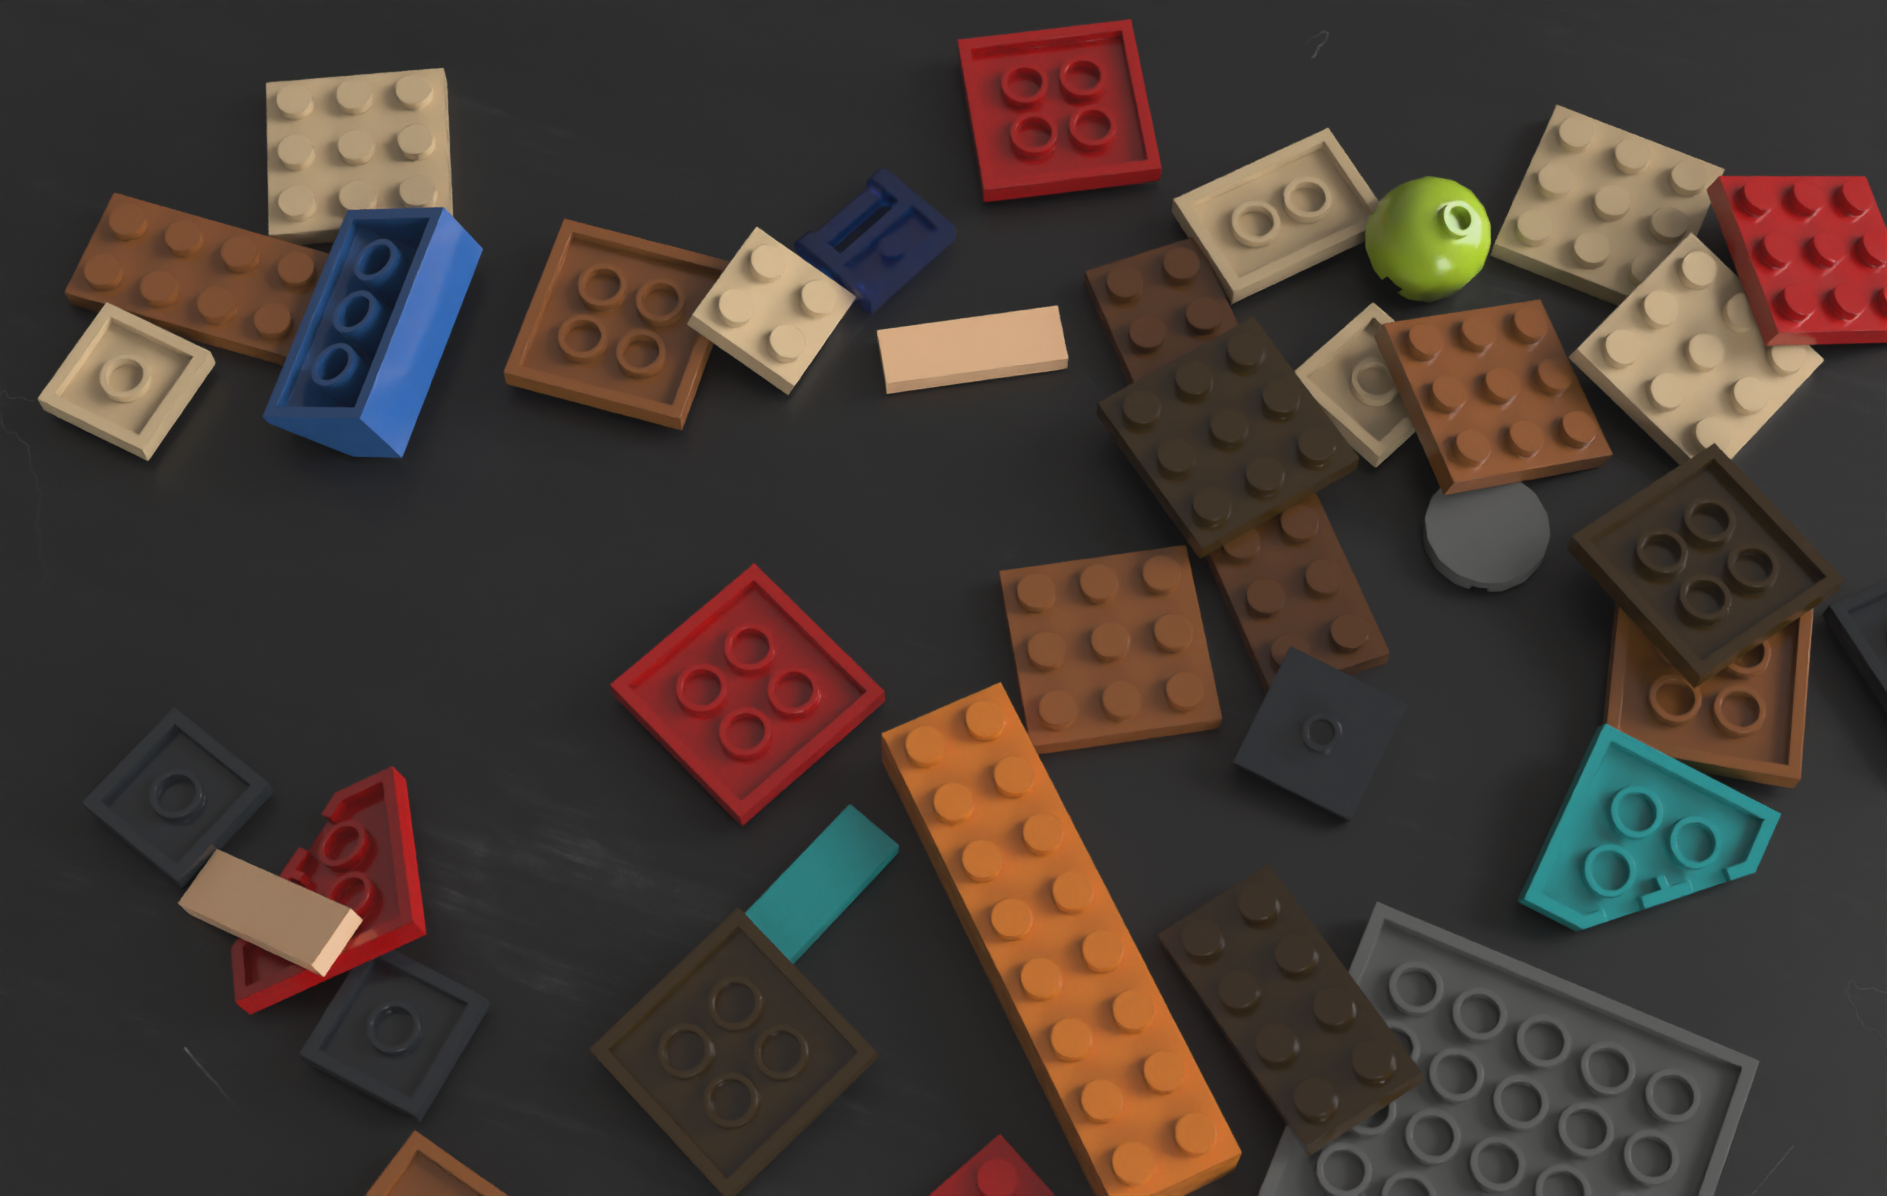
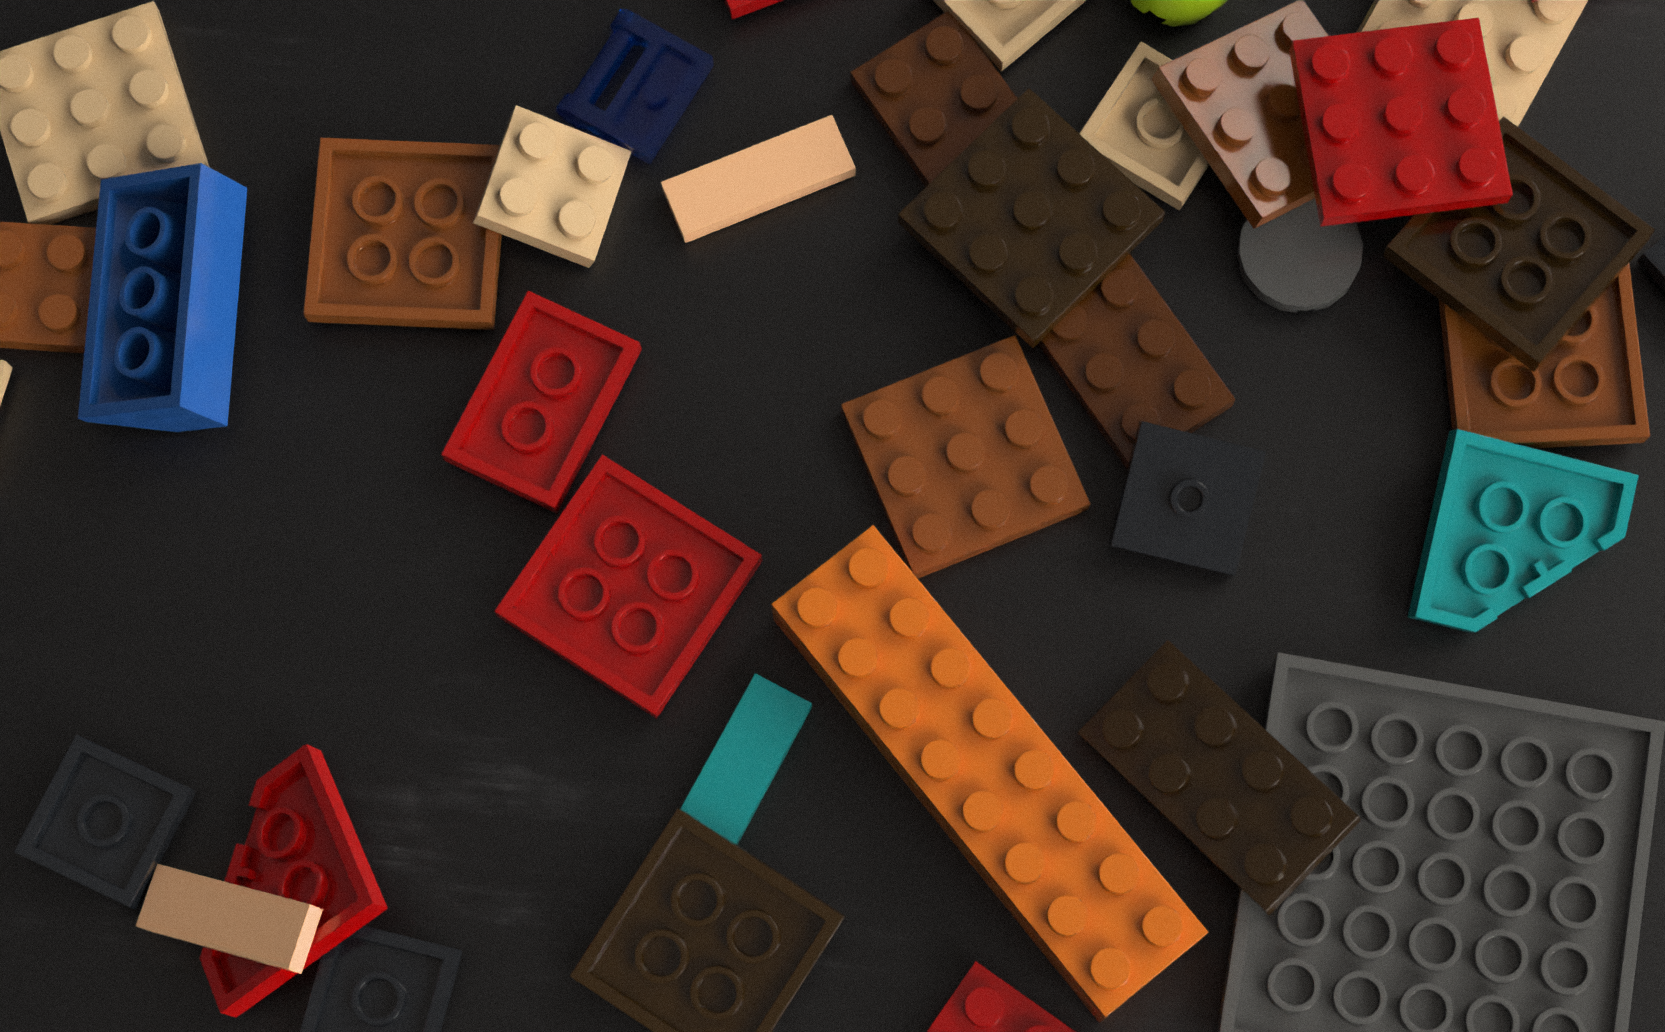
camera: 10 degrees left, 10 degrees up
(709, 504) = (542, 401): none -> red plate
(1610, 423) = (1400, 122): none -> red plate

